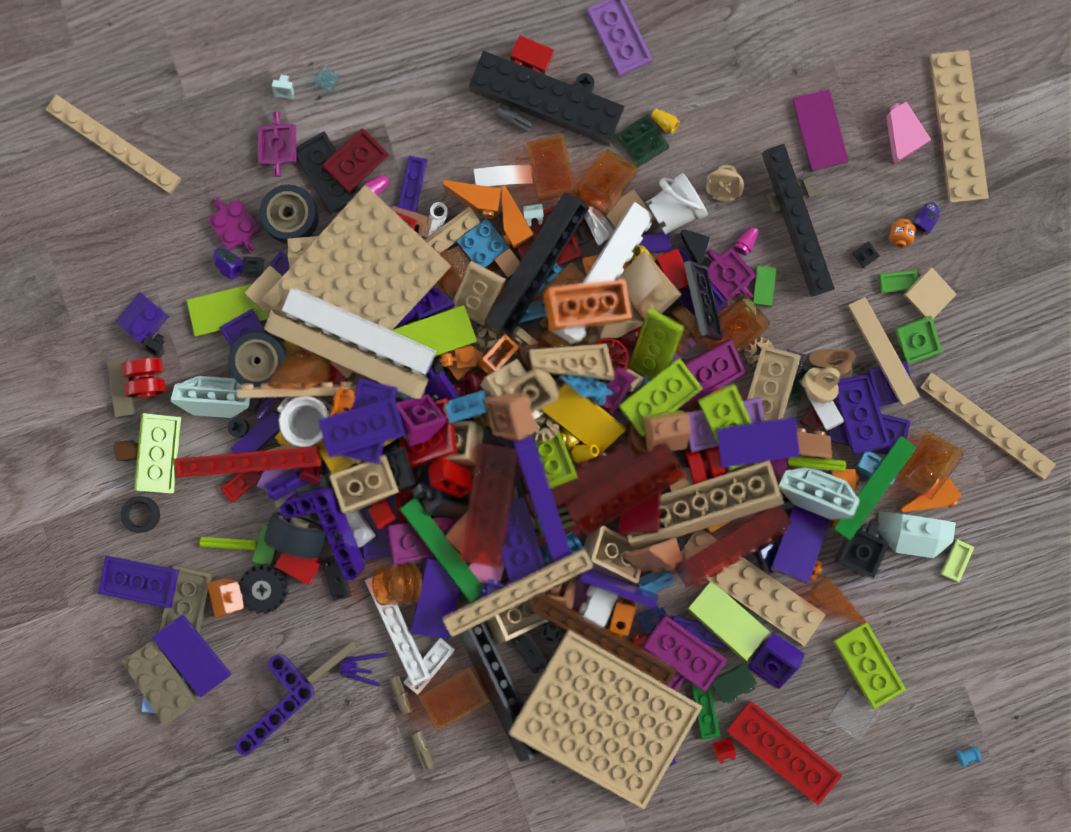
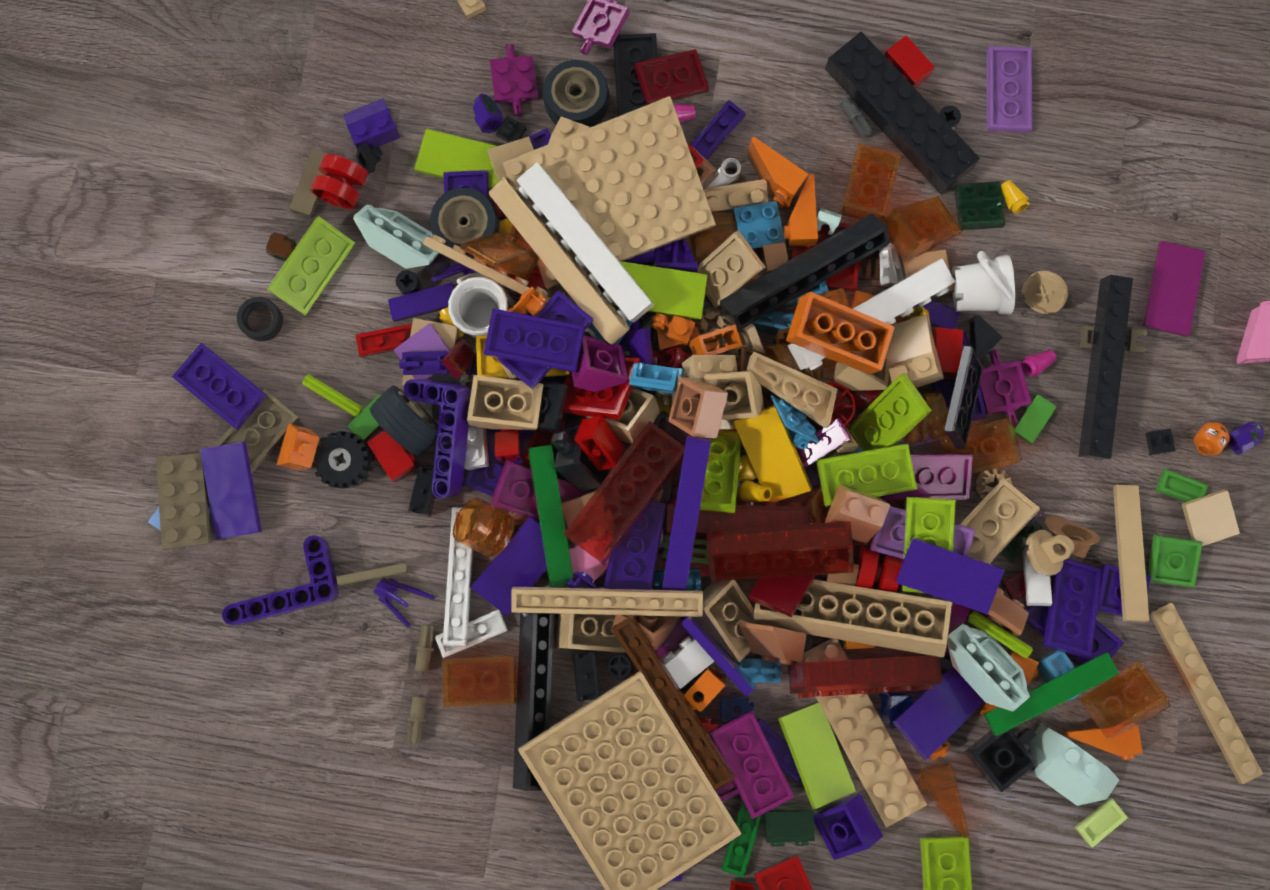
camera: 25 degrees right, 5 degrees down
(248, 462) = (399, 320): red plate -> none
(509, 176) = (825, 171): white slope -> none
(545, 434) = (723, 450): tan gear -> none

